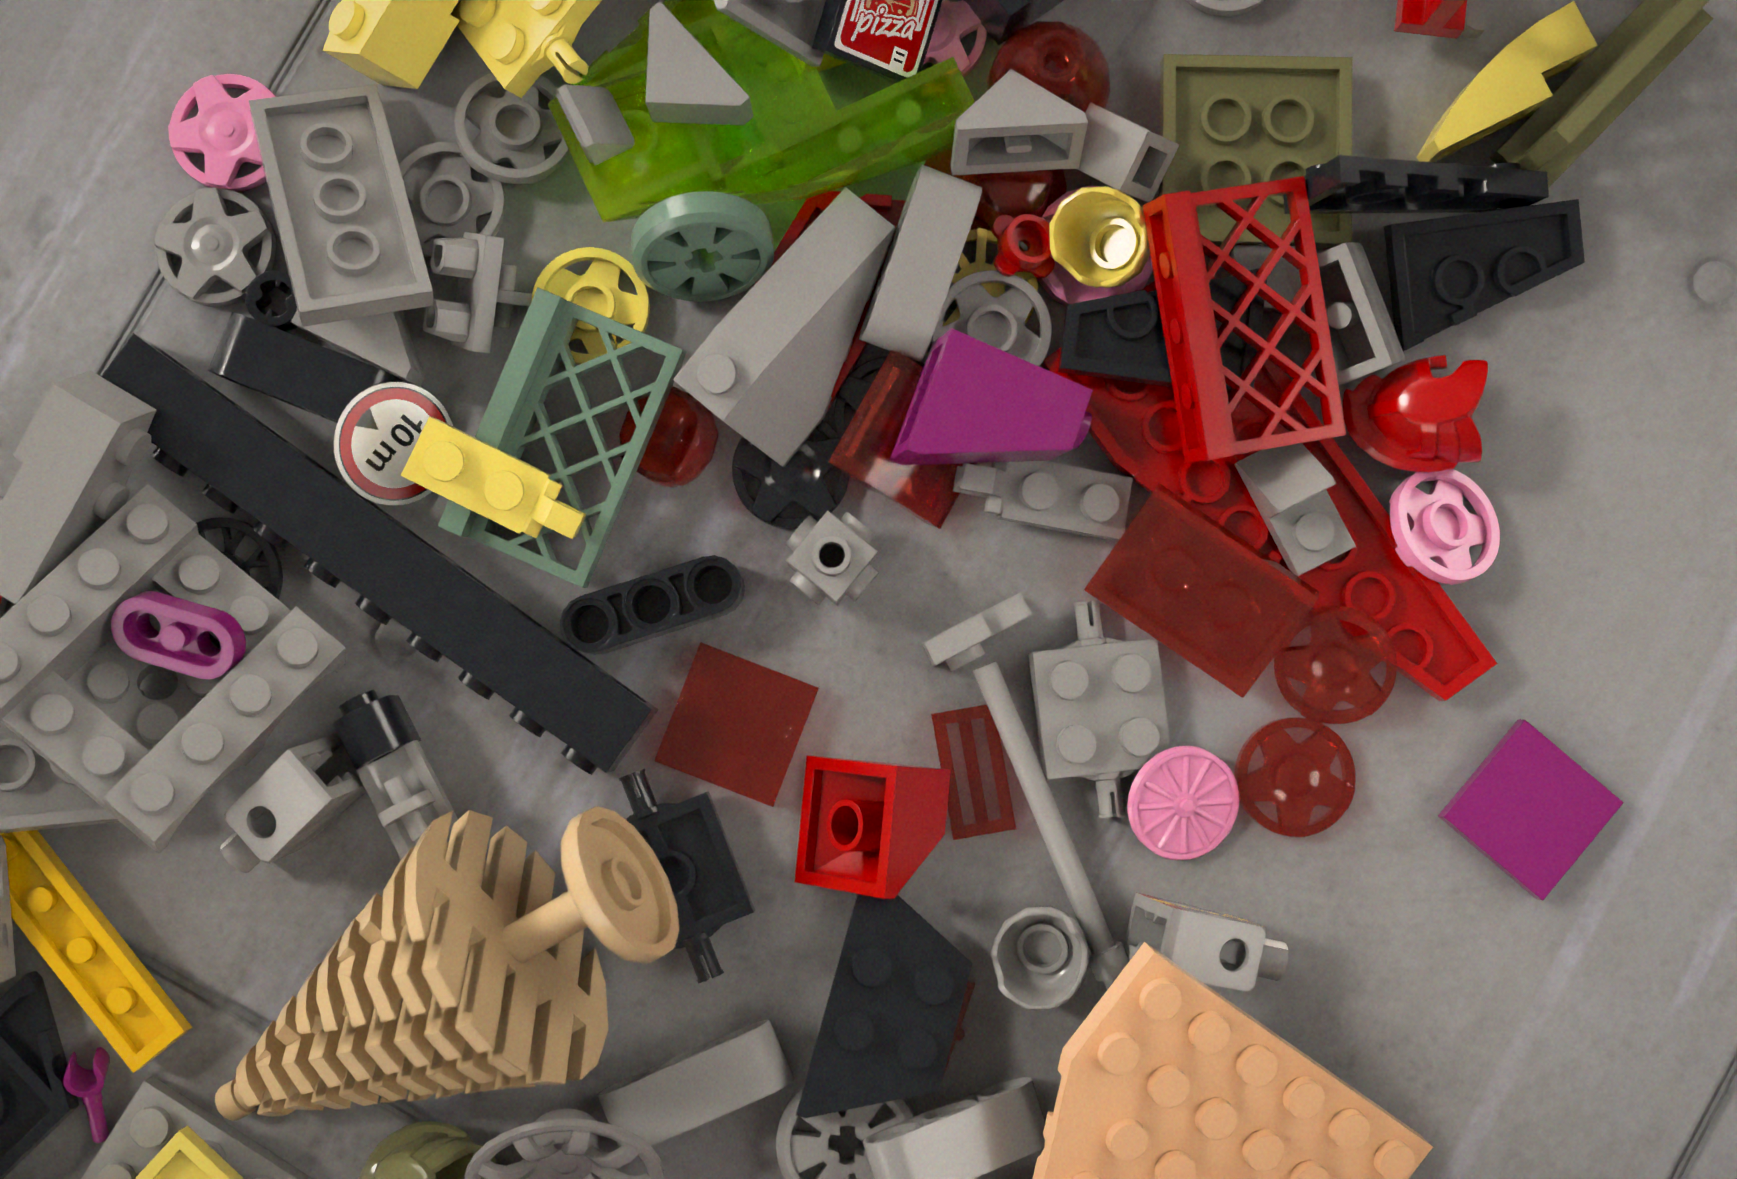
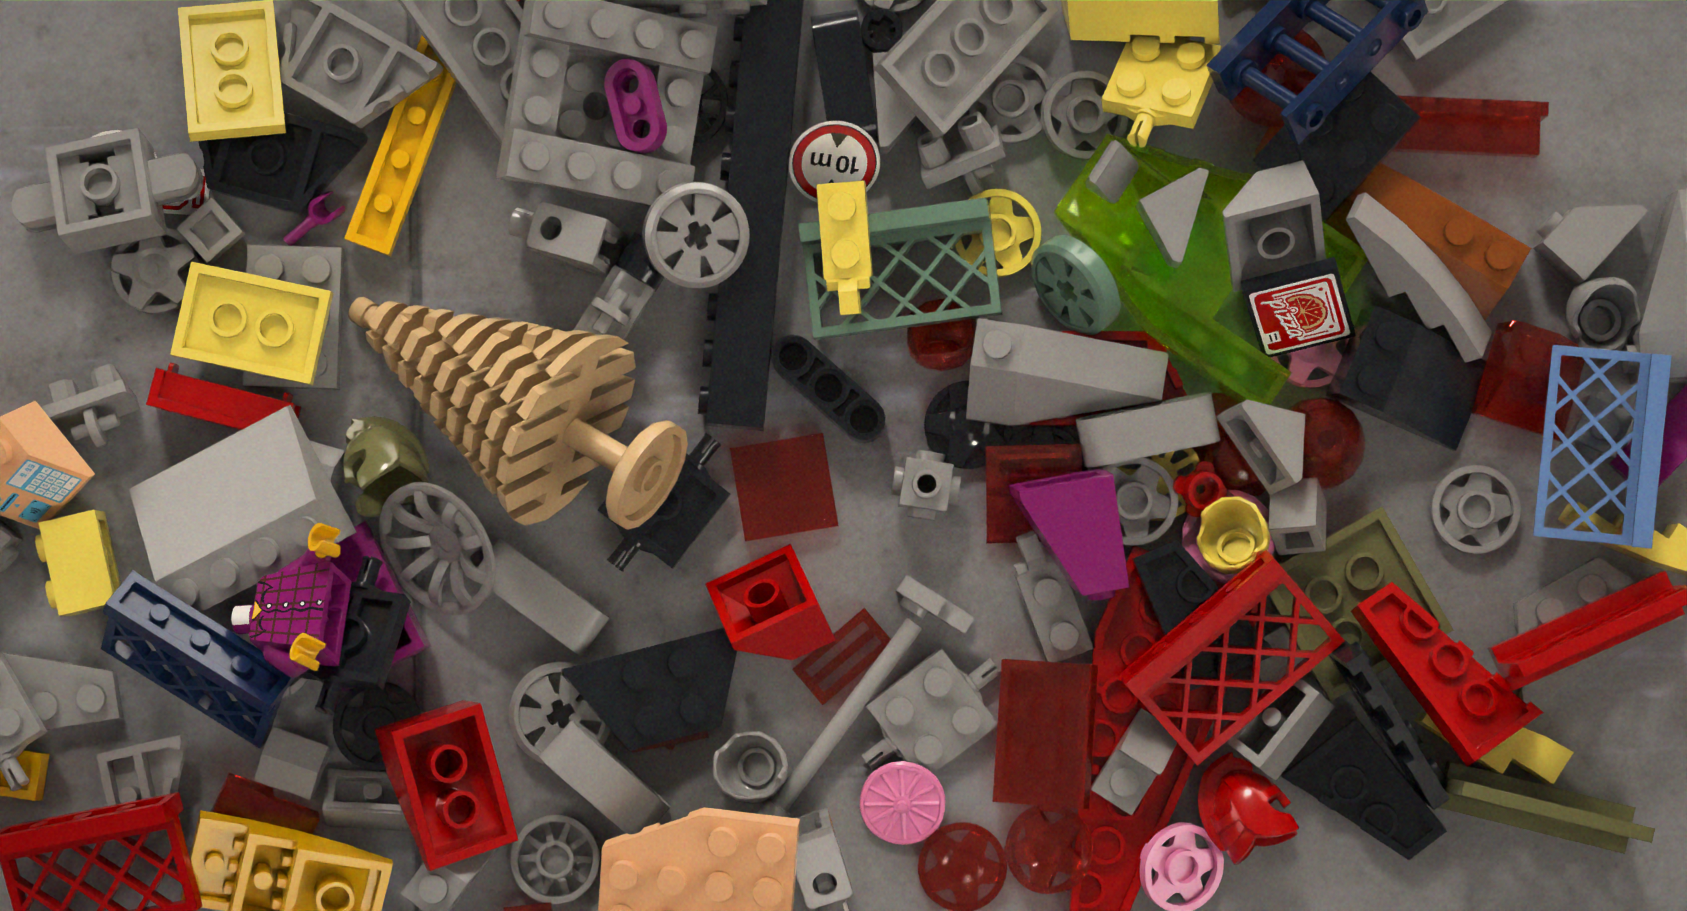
camera: 60 degrees right, 0 degrees up
(343, 682) = (724, 242): none -> light grey wheel
(1432, 89) = (1454, 689): none -> red wing

